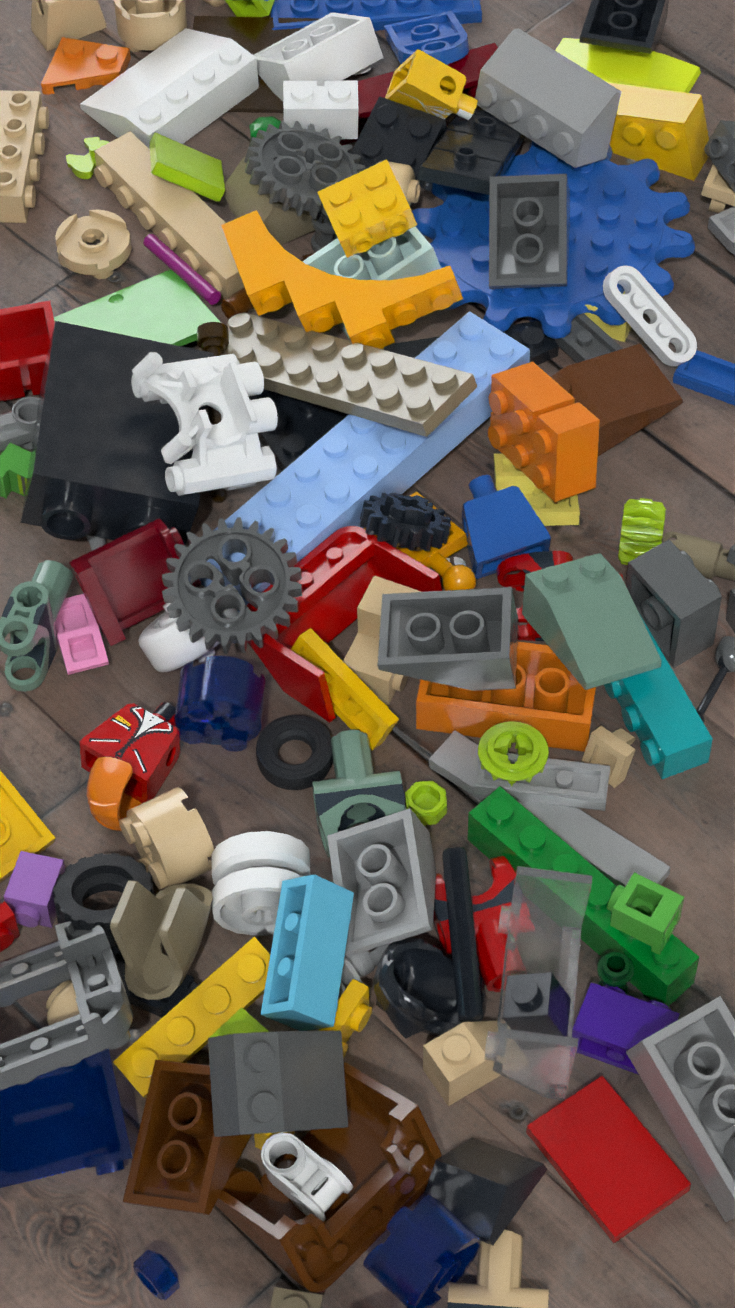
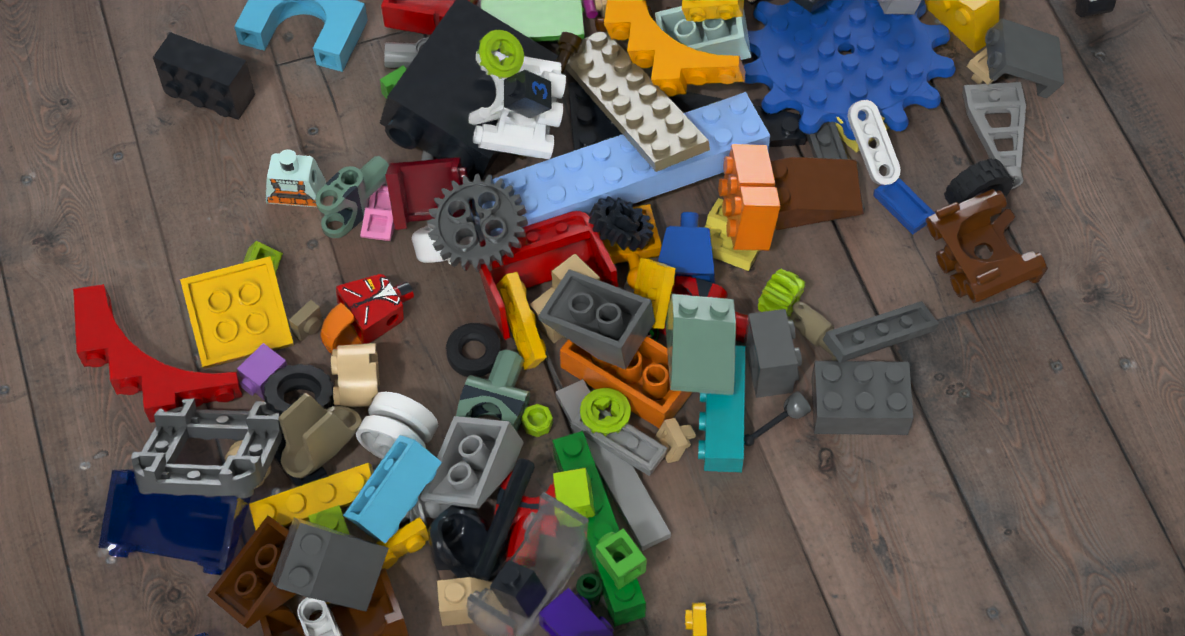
camera: 25 degrees right, 5 degrees up
(58, 803) = (306, 321): none -> dark tan plate
(175, 346) = (509, 46): none -> lime gear
(220, 703) = (438, 297): clear blue brick -> none
(226, 397) = (527, 94): none -> black brick
(493, 568) = (655, 283): none -> yellow plate
(529, 231) = (822, 49): dark grey slope -> none
(541, 850) = (575, 491): none -> lime brick

